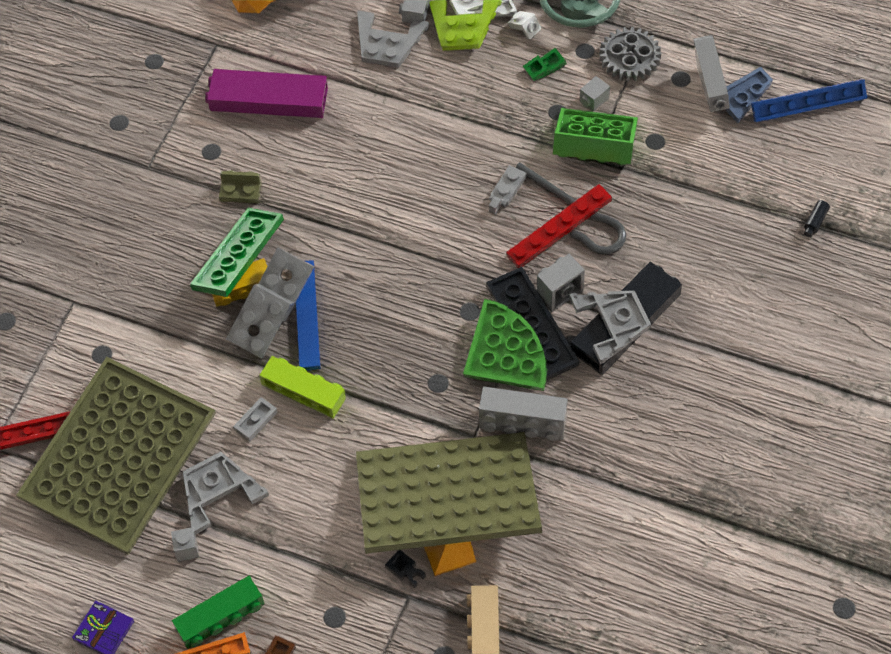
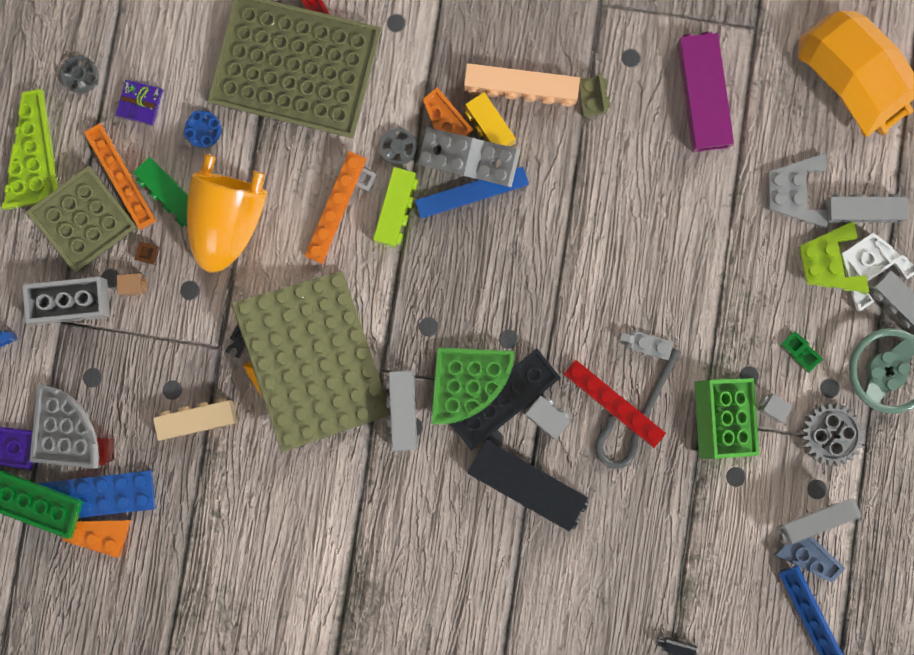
camera: 75 degrees right, 25 degrees up
(156, 565) = (202, 129): none -> blue dish
(185, 544) = (223, 148): light grey brick -> none
(212, 481) = (289, 154): light grey wing -> none
(216, 226) = (521, 84): none -> light nougat brick
(217, 323) = (444, 114): none -> orange wing
(236, 374) = (397, 146): none -> dark grey piece
(237, 252) = (515, 112): plate -> none
(265, 547) = (221, 215): none -> light orange windscreen
(285, 443) = (335, 207): none -> orange plate
(526, 22) = (847, 322): white bracket -> none
(621, 315) = (519, 482): light grey wing -> none

